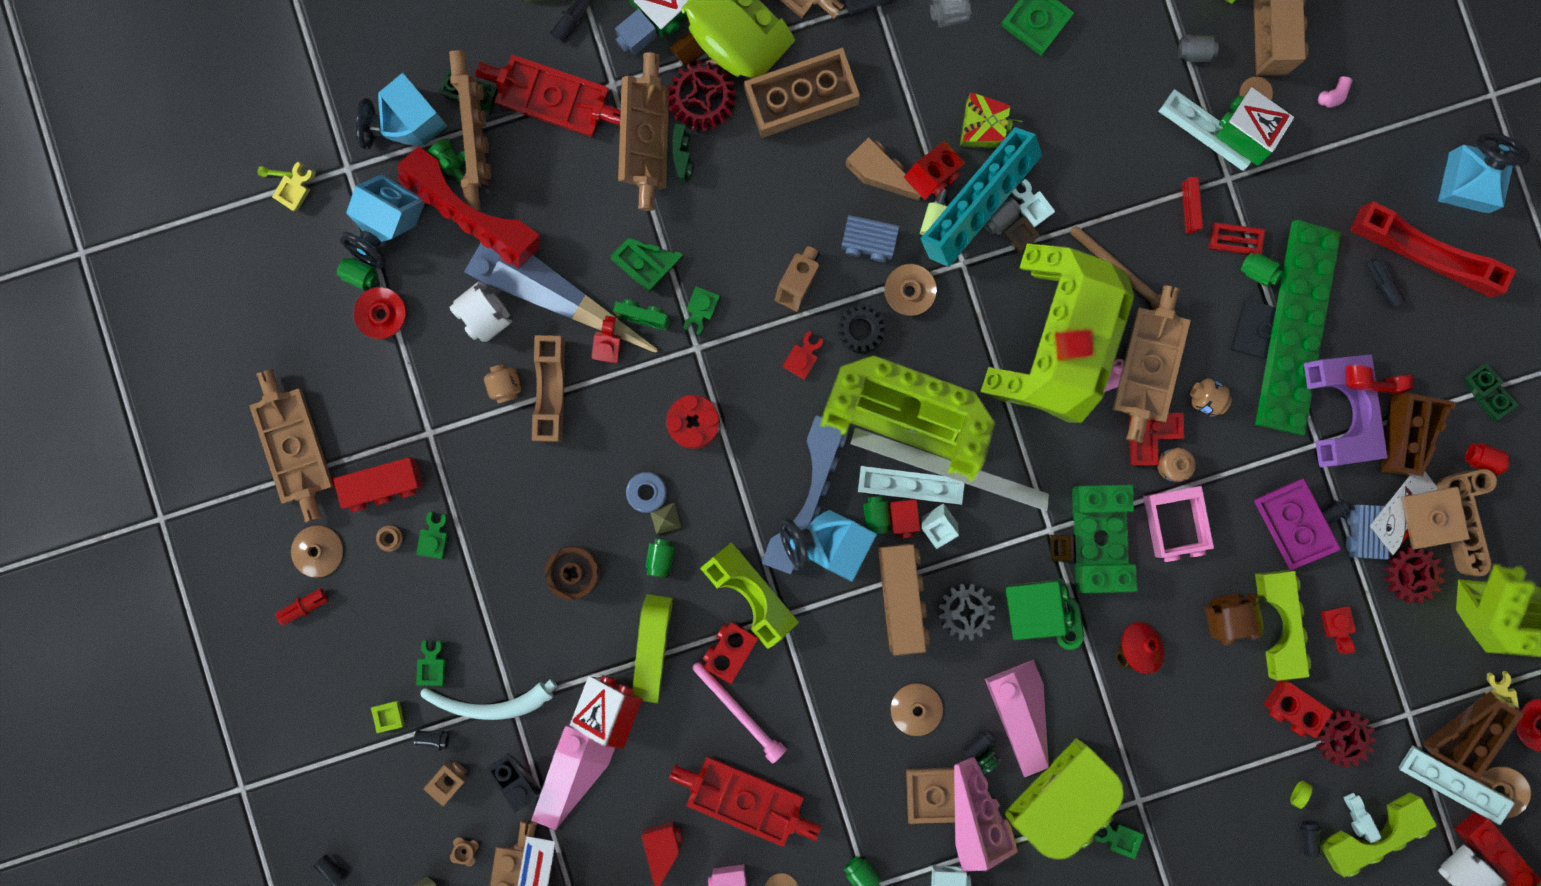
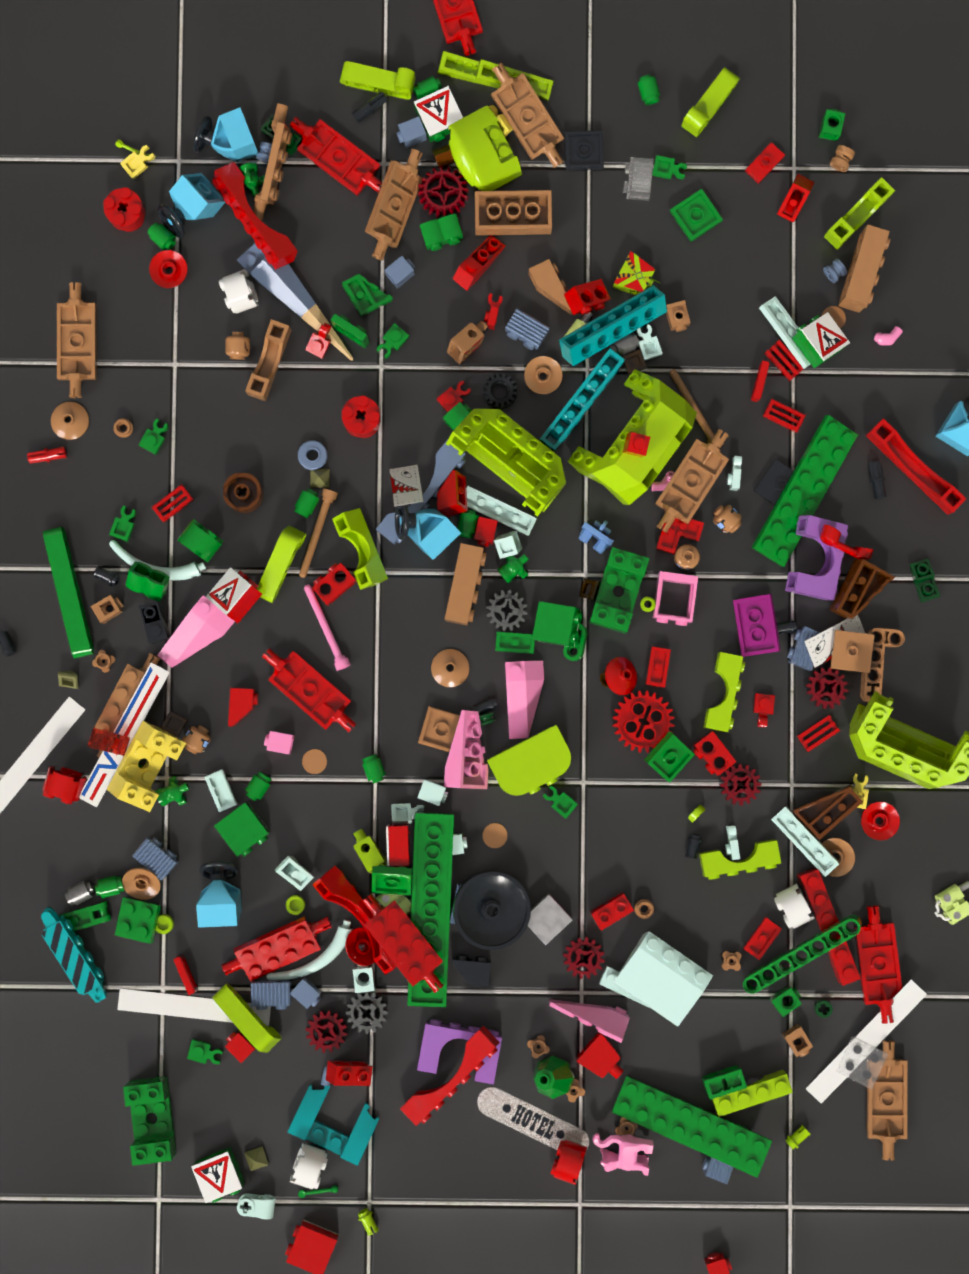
camera: 10 degrees right, 0 degrees up
(283, 251) = (119, 200): none -> red brick
(378, 484) = (128, 387): red brick -> none
(387, 716) = (81, 550): lime plate -> none
(388, 778) = (68, 592): none -> green beam
(454, 121) = (265, 149): none -> sand blue wheel
(488, 730) = (147, 581): none -> green brick
(498, 597) = (185, 494): none -> red tile
(537, 655) = (200, 540): none -> green brick
(680, 217) = (400, 271): none -> sand blue brick
(682, 160) = (414, 232): dark green slope -> none
(685, 541) = (328, 497): none -> medium nougat piece
(717, 148) = (441, 232): none -> green brick
(777, 172) = (478, 262): none -> red slope
(783, 494) = (406, 485): none -> white sticker
(818, 236) = (491, 316): none -> red plate
(819, 380) = (456, 415): none -> green brick
(846, 485) = (453, 495): none -> red slope
(940, 466) = (517, 499): white sticker -> none
(955, 553) = (513, 568): none -> green piece
(972, 306) = (582, 400): none -> teal brick
(990, 650) = (514, 642): none -> green plate
(1052, 163) = (674, 323): none -> medium nougat brick
(1060, 481) = (603, 541): none -> medium blue hips
(1153, 544) = (650, 600): none -> lime pin
(1186, 619) = (658, 667): none -> red plate
(1198, 48) = (801, 273): flat silver brick -> none
(1199, 149) = (792, 358): none -> red tile
(1202, 339) = (734, 478): none -> light aqua plate
(1215, 697) = (626, 714): none -> red gear
(1234, 618) = (690, 674): reddish brown brick -> none
(1239, 32) = (835, 270): none -> sand blue wheel
(1242, 734) = (669, 757): none -> green plate
(1262, 269) = (793, 441): green brick -> none
(1428, 643) = (831, 724): none -> red tile
(1487, 457) = (905, 624): red brick -> none

